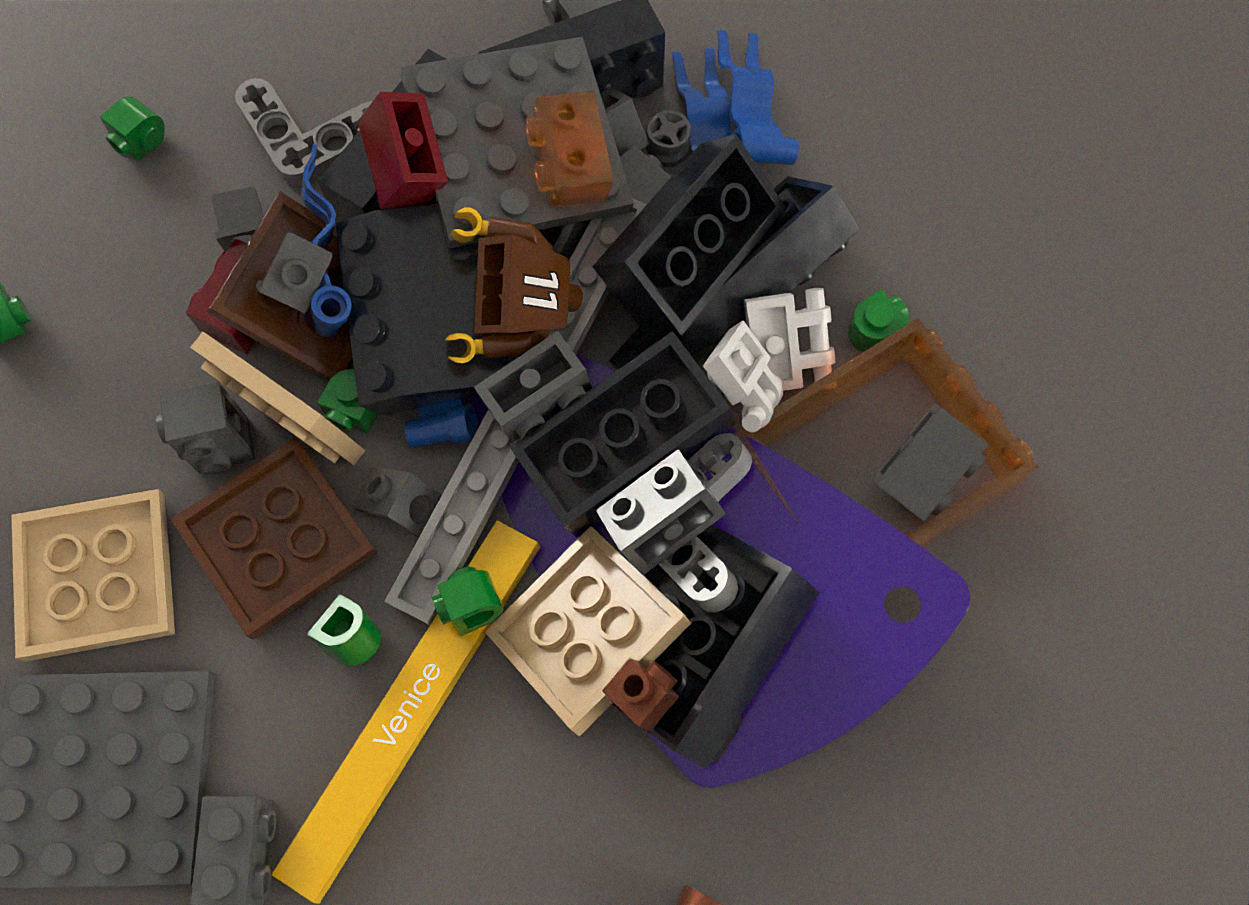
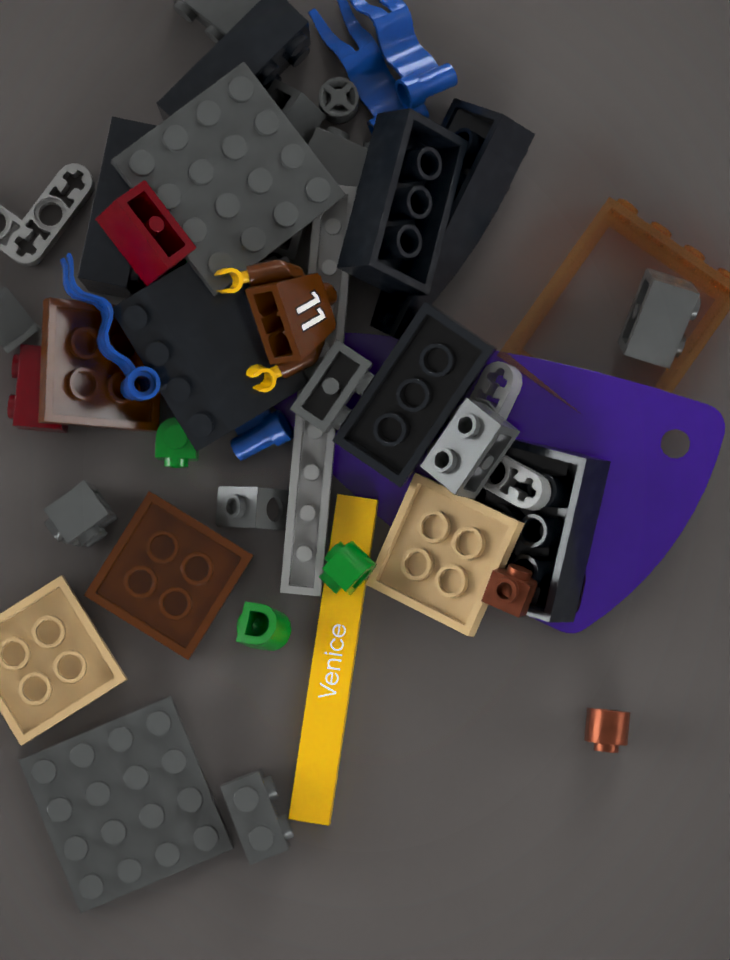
camera: 20 degrees left, 15 degrees up
(275, 401) = (132, 475): tan plate -> none
(295, 272) = (104, 370): dark grey bracket -> none
(570, 149) = (283, 180): clear orange brick -> none
(742, 374) = (490, 309): white plate -> none
(775, 327) = (500, 261): white plate -> none
(876, 320) = (577, 206): green plate -> none

